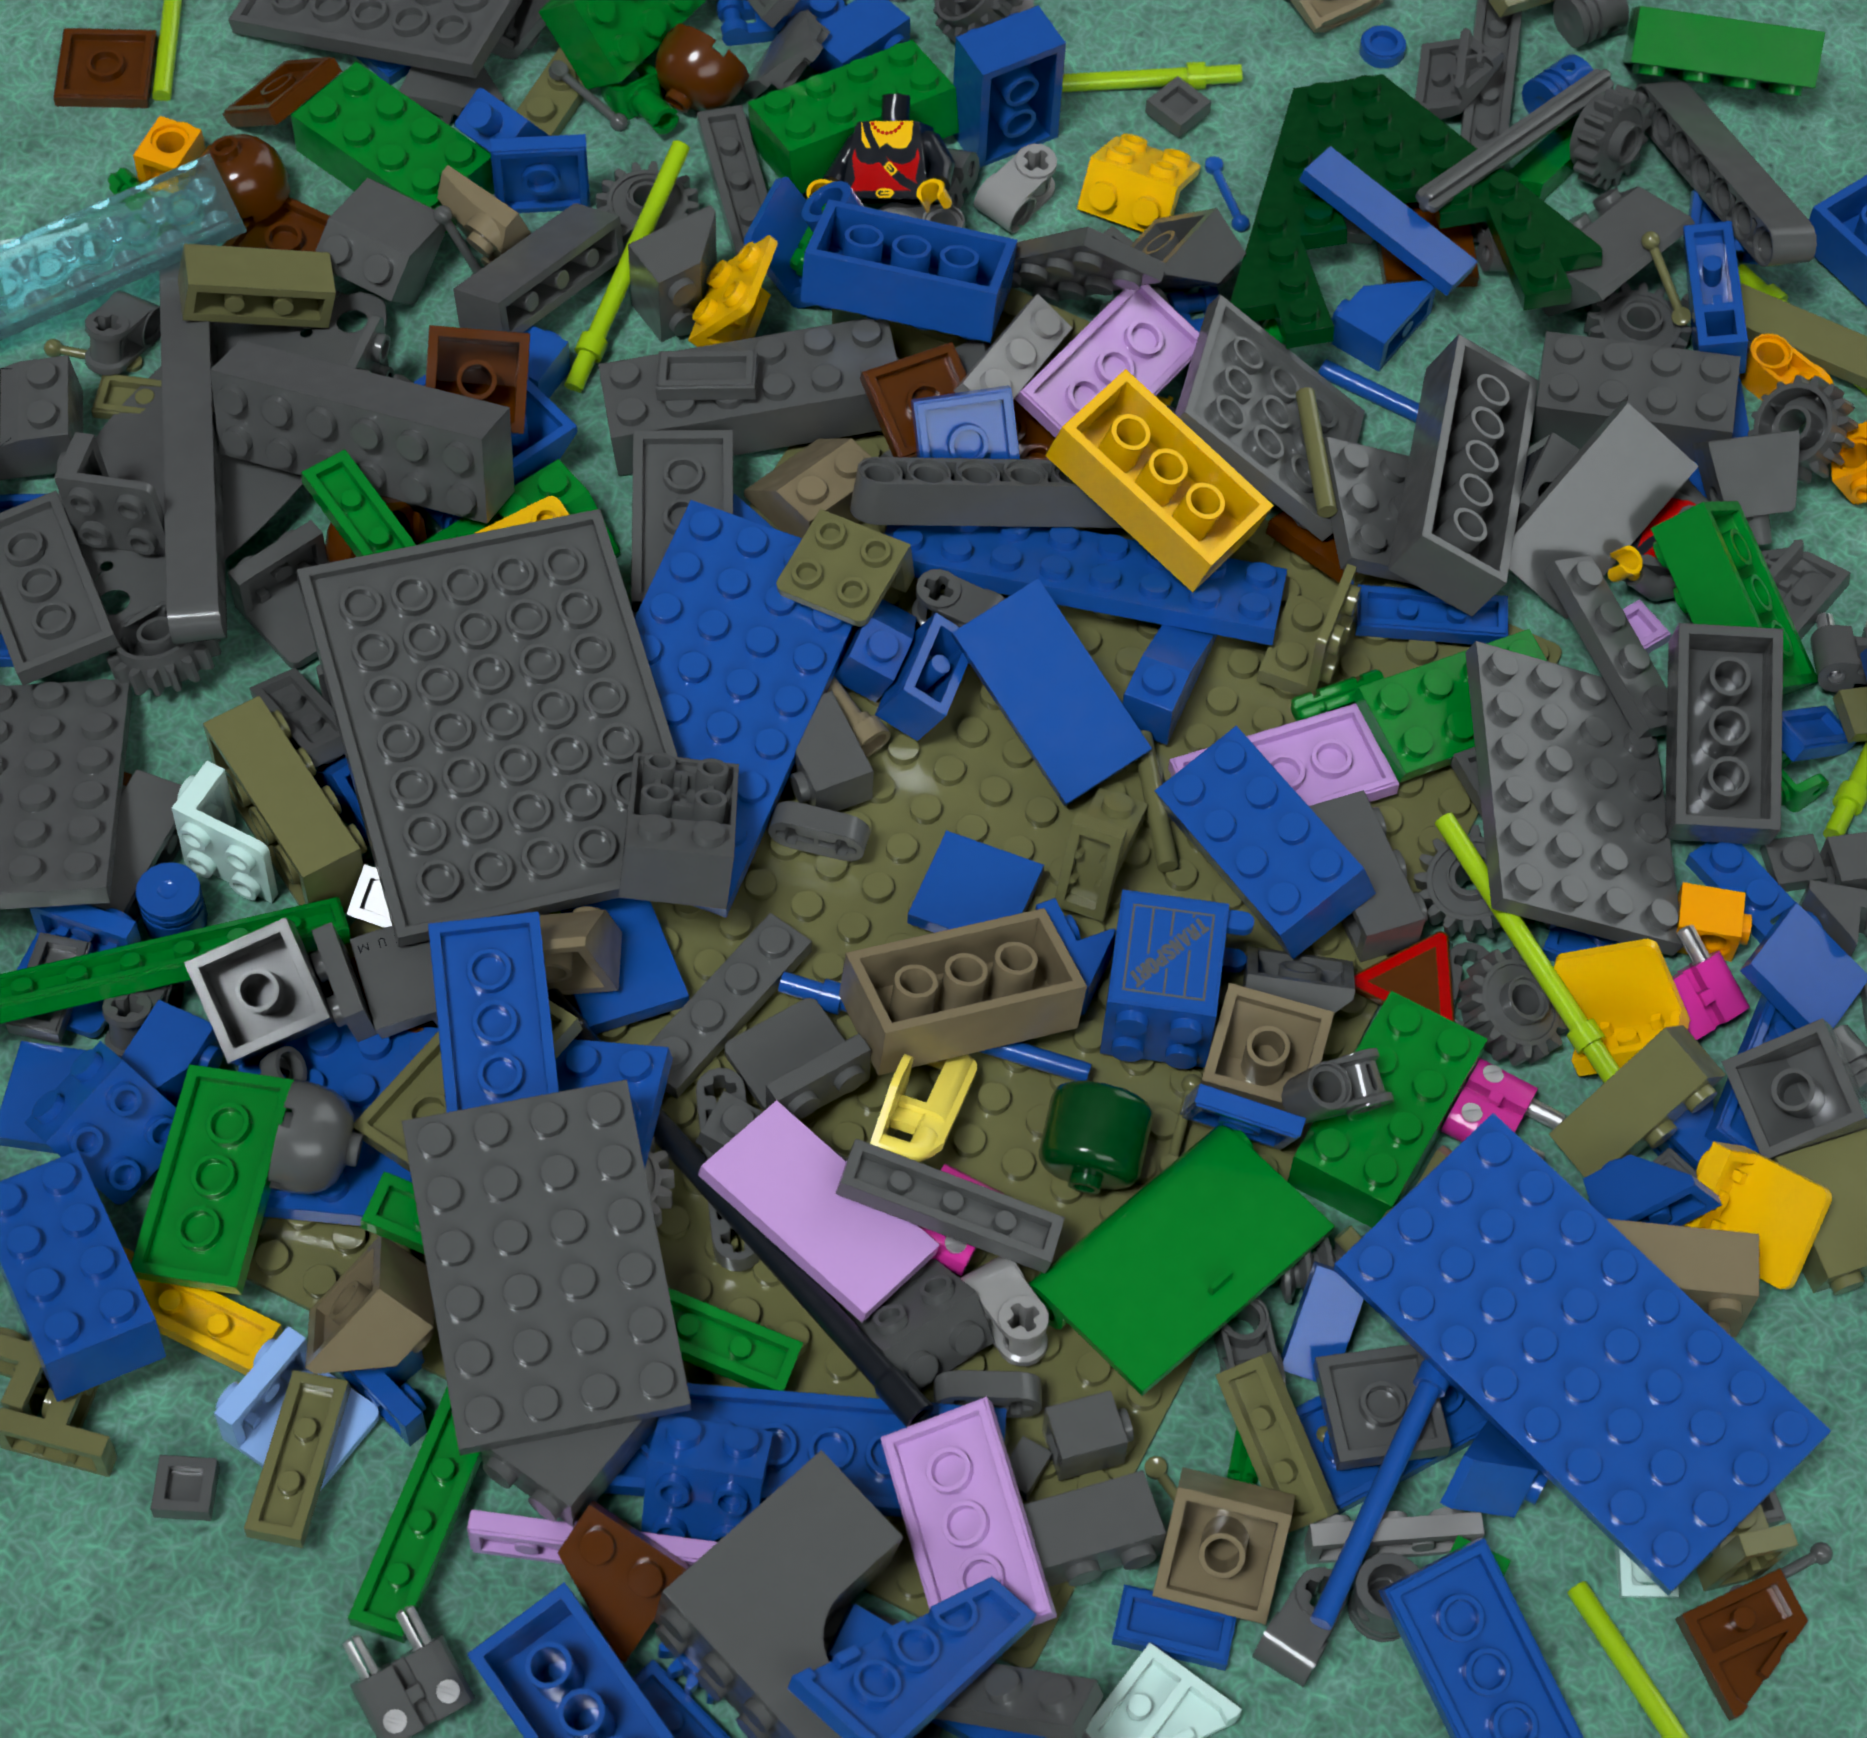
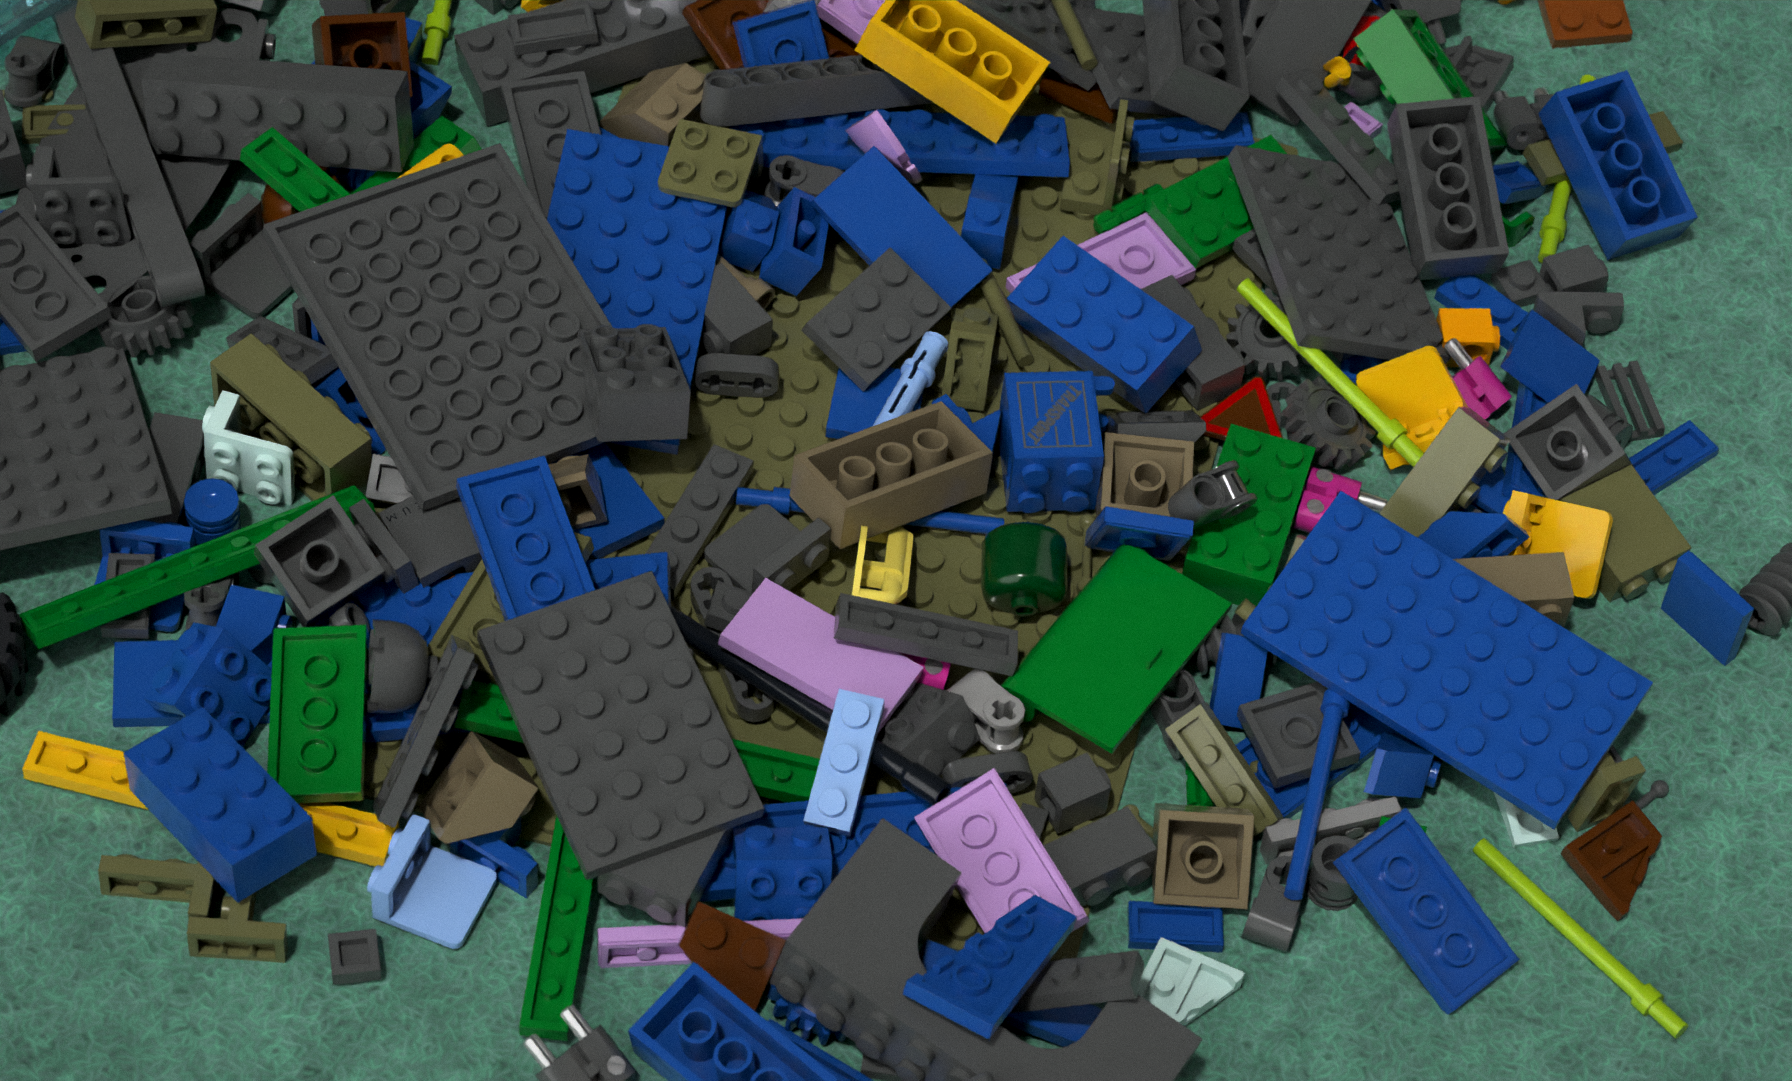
camera: 15 degrees left, 5 degrees down
(297, 1459) = (443, 916): olive plate -> none
(316, 1243) = (433, 715): none -> dark grey plate
(811, 1354) = (844, 762): none -> light blue plate
(996, 790) = (876, 319): none -> dark grey plate
(1027, 867) = (916, 375): none -> light blue pin
(1043, 563) = (875, 132): none -> lavender brick

